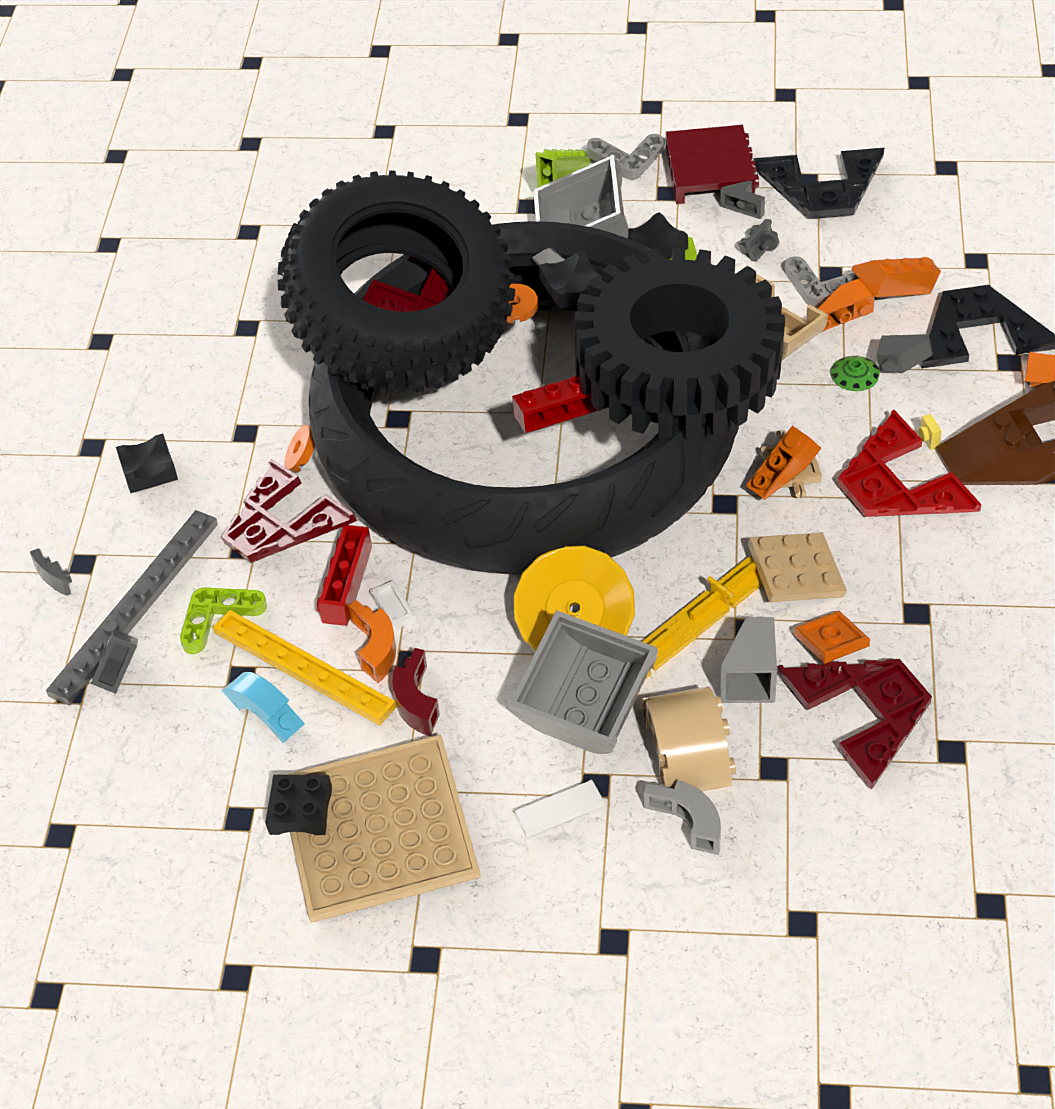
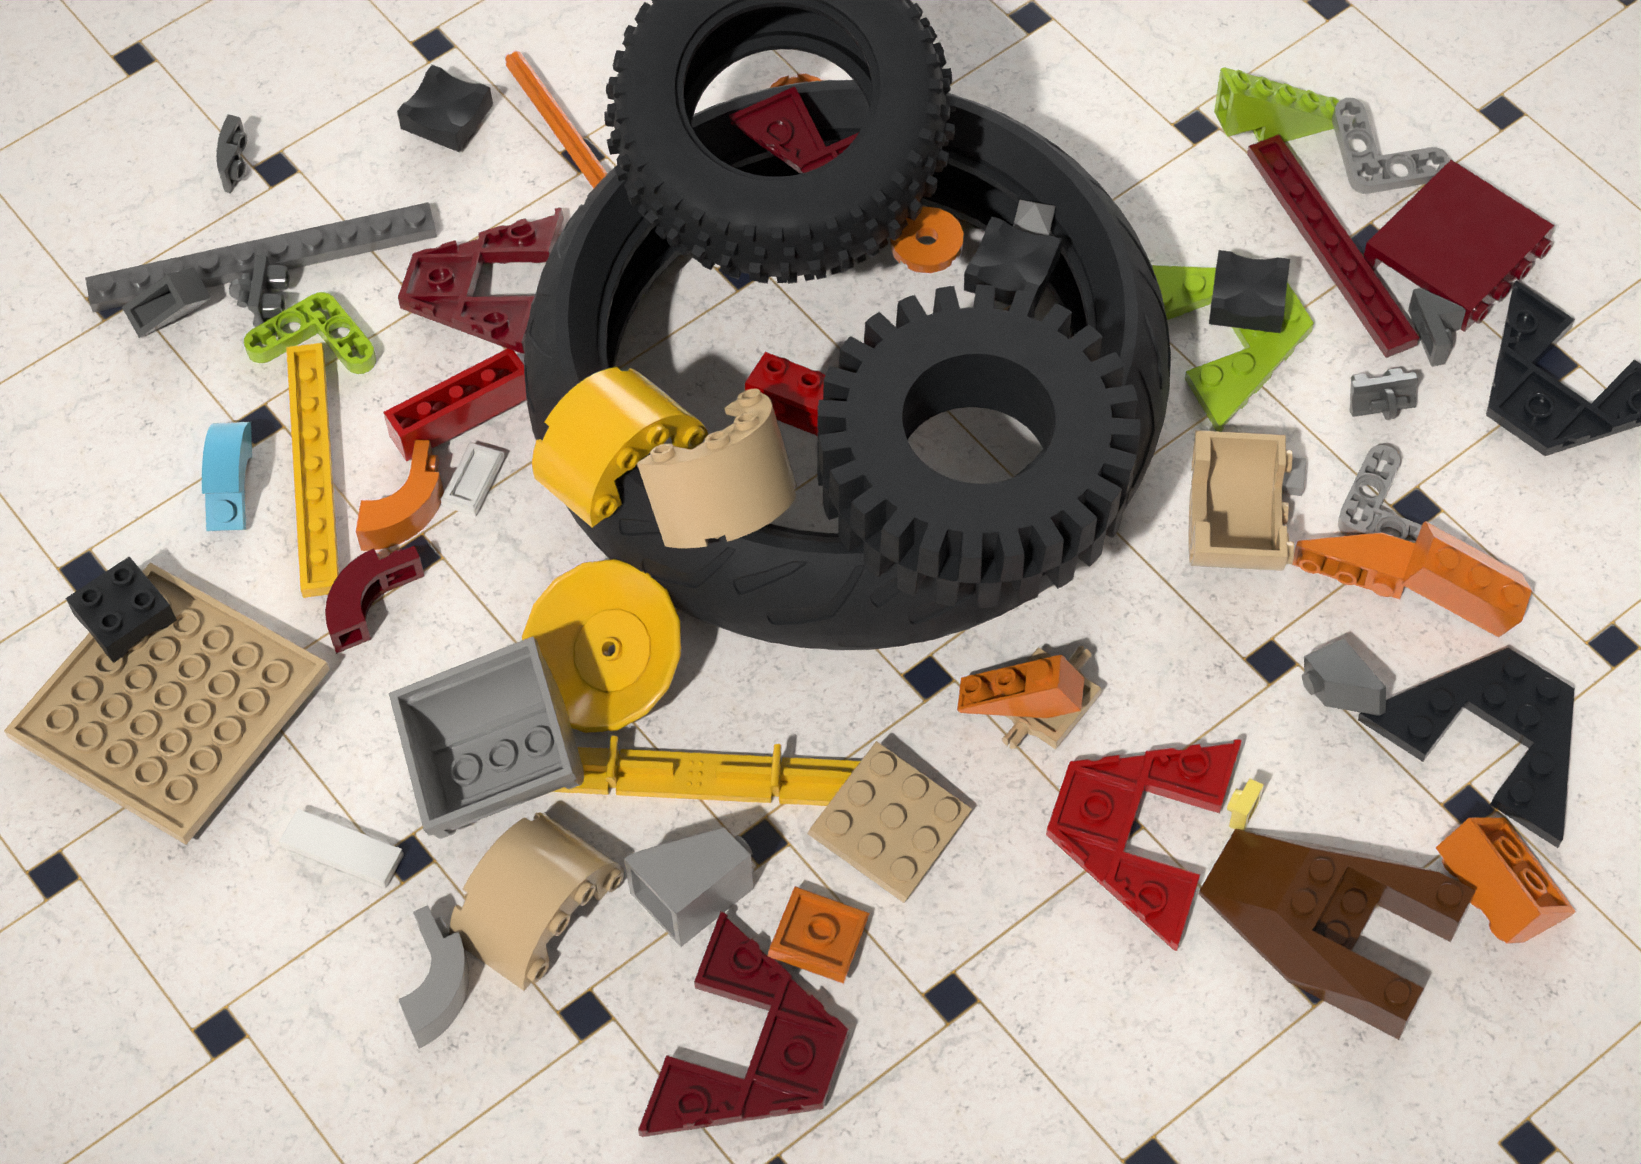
camera: 45 degrees right, 10 degrees up
(158, 618) = (255, 290): none -> dark grey hips
(215, 427) = (555, 118): none -> orange axle
(493, 490) = (604, 432): none -> yellow cylinder
(585, 198) = (1203, 187): light grey container -> none
(588, 451) = (726, 483): none -> tan cylinder
(683, 207) = (1333, 246): none -> dark red plate
(855, 373) = (1270, 668): bright green dish -> none

